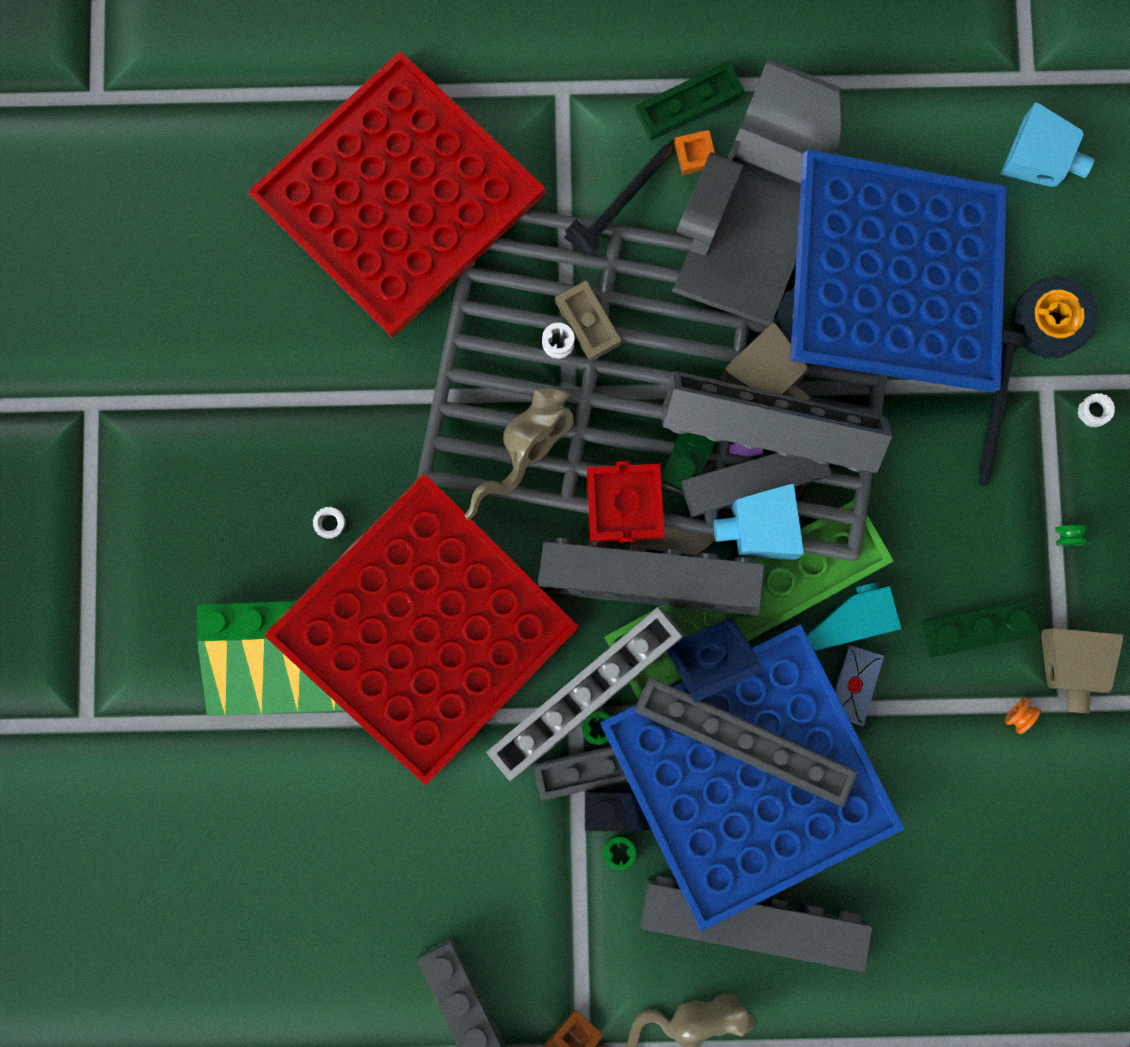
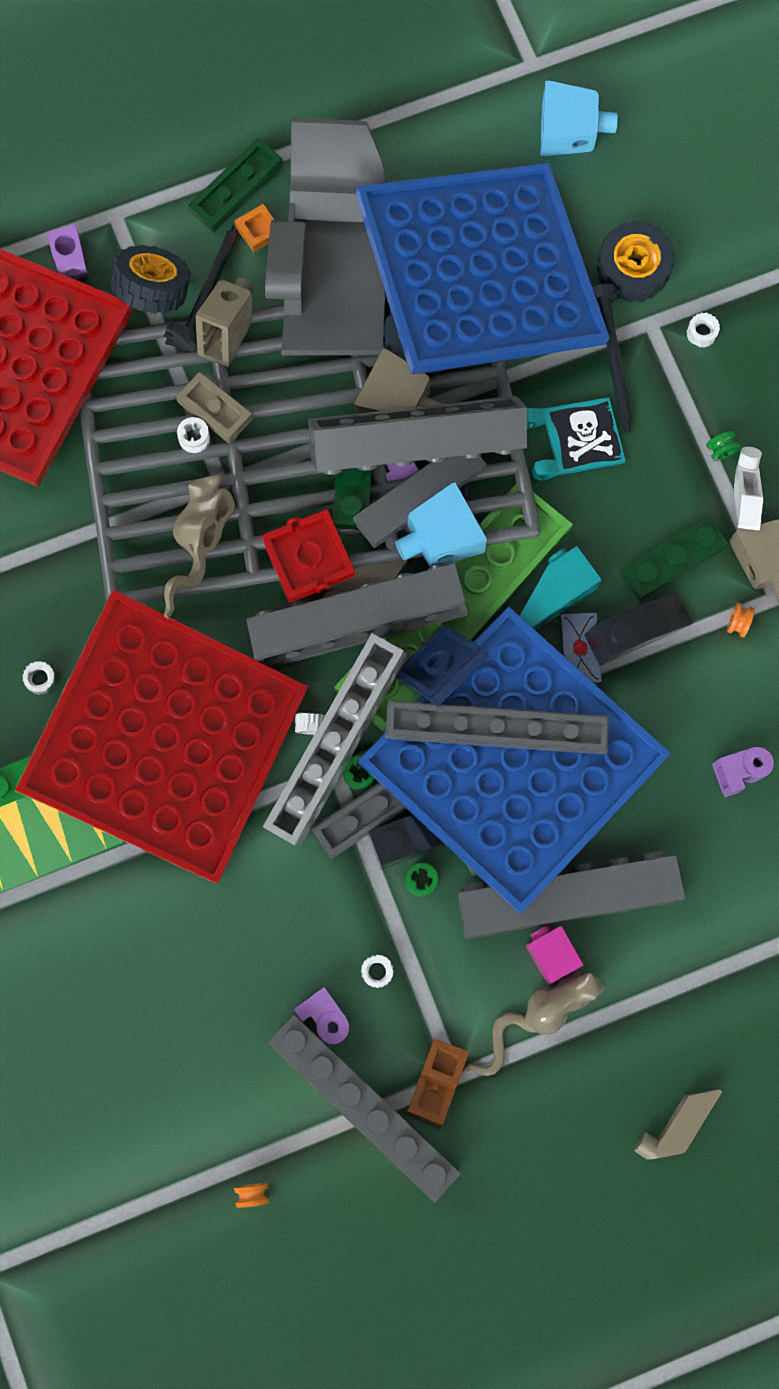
camera: 25 degrees left, 5 degrees down
(482, 948) = (330, 1020): none -> medium lavender leg
(503, 113) = (68, 252): none -> medium lavender leg
(538, 934) = (377, 959): none -> white axle
(568, 663) = (308, 723): none -> white axle
(572, 169) = (150, 279): none -> black wheel
(629, 237) = (224, 320): none -> dark tan torso
(718, 974) = (553, 953): none -> dark pink brick
(918, 688) = (637, 628): none -> black slope
(933, 474) = (580, 438): none -> flag
(968, 860) = (742, 766): none -> medium lavender leg
(1080, 590) = (748, 489): none -> white piece

